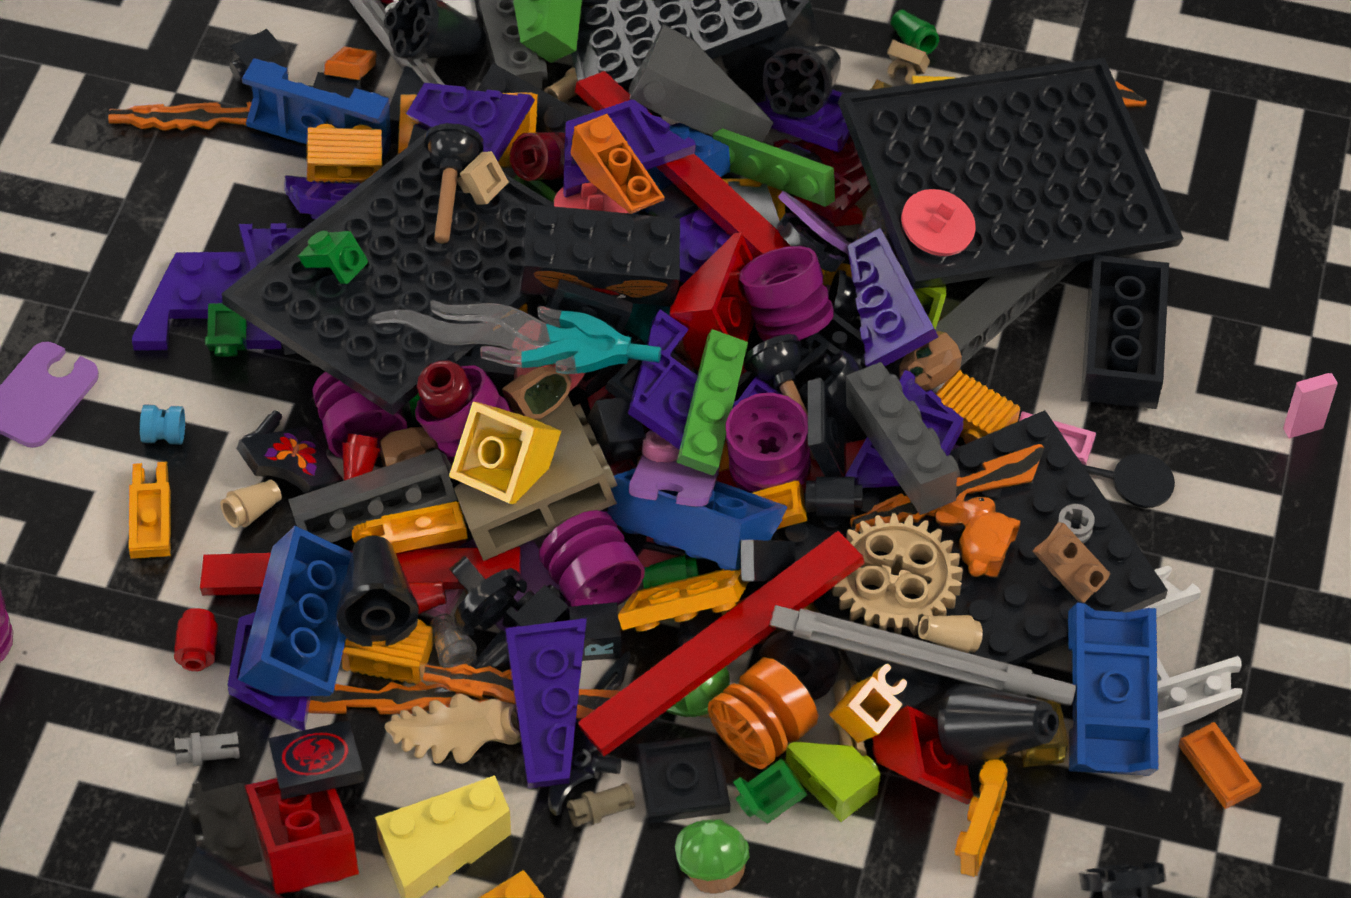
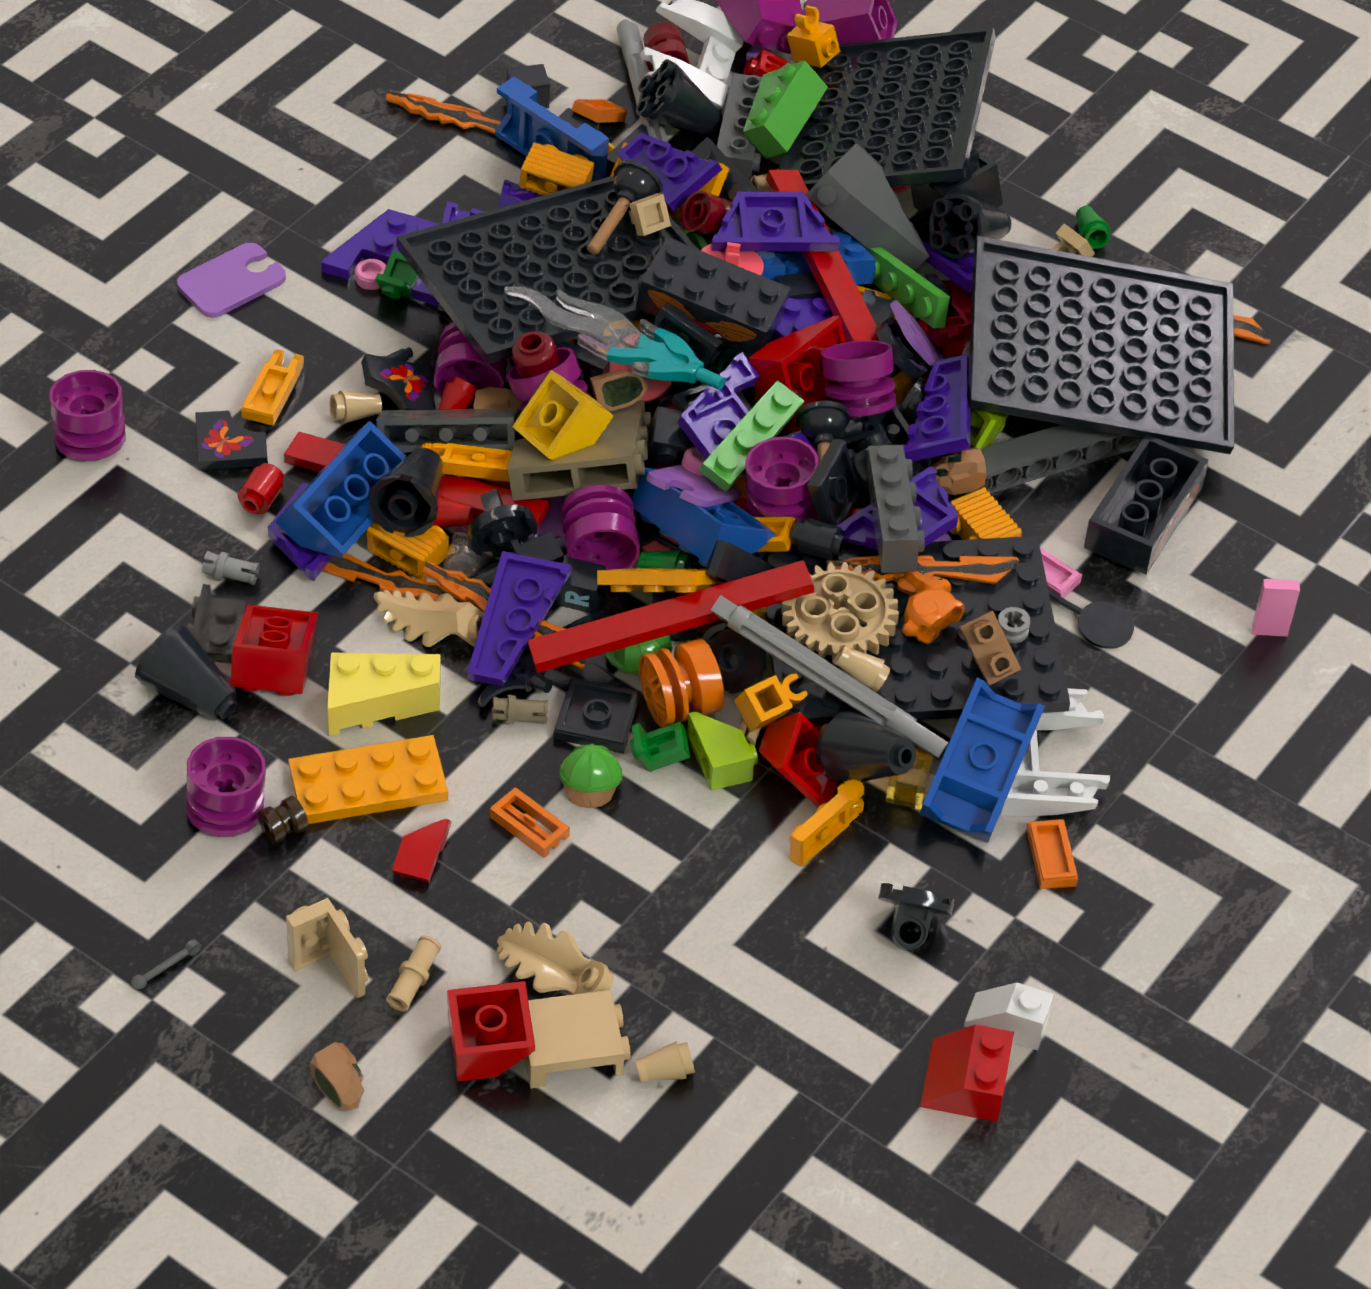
camera: 20 degrees right, 5 degrees down
(129, 597) = (226, 444): none -> black tile
(162, 424) = (313, 328): dark azure wheel -> none
(190, 335) = (367, 271): none -> bright pink tile
(316, 760) = (310, 602): black tile -> none
(335, 251) = (502, 232): green bracket -> none
(613, 165) = (755, 230): orange slope -> none
(938, 222) = (1013, 361): coral piece -> none

